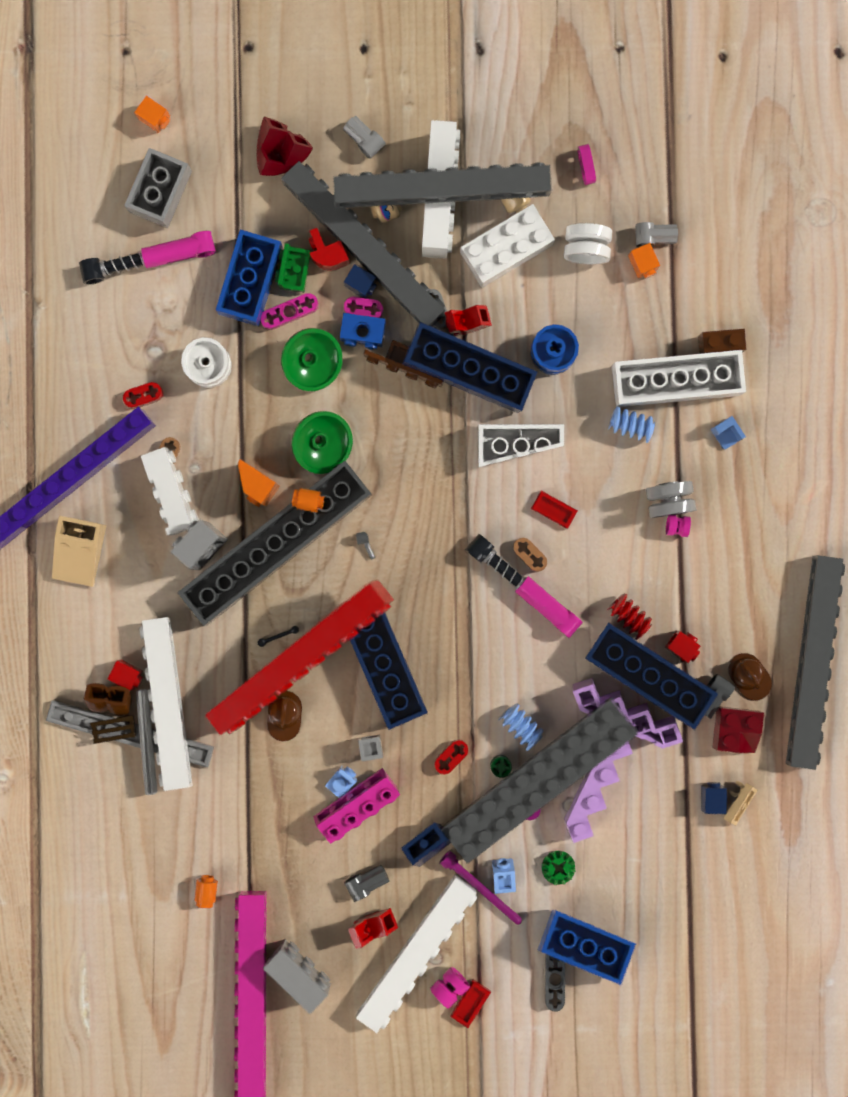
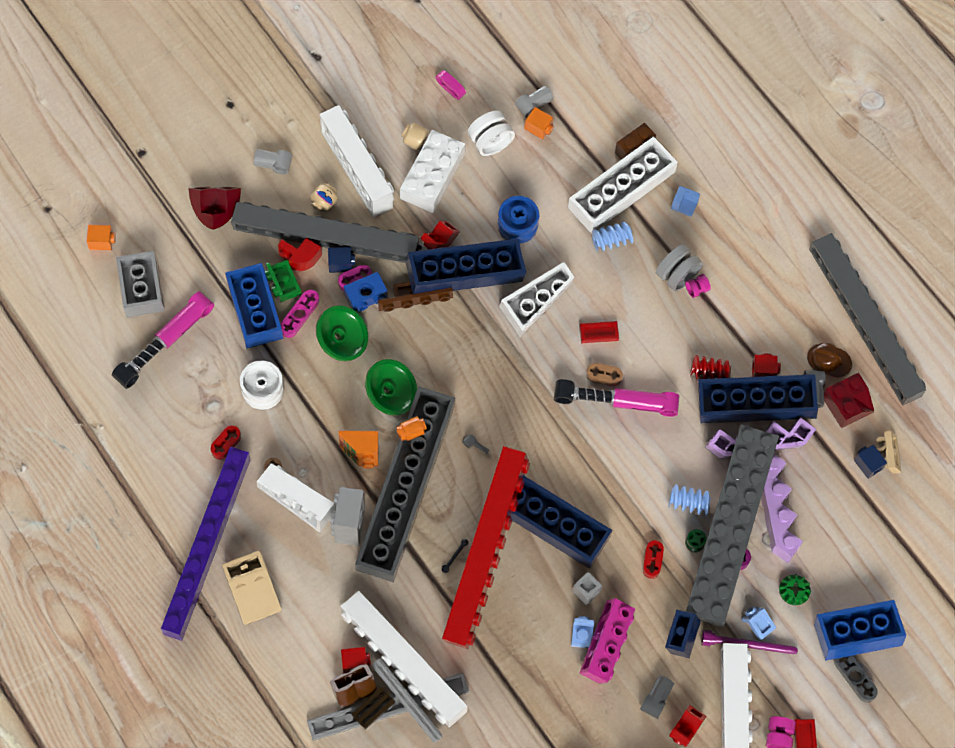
camera: 40 degrees left, 20 degrees down
(284, 716) = (502, 614): reddish brown piece -> none
(442, 186) = (359, 150): dark grey brick -> none

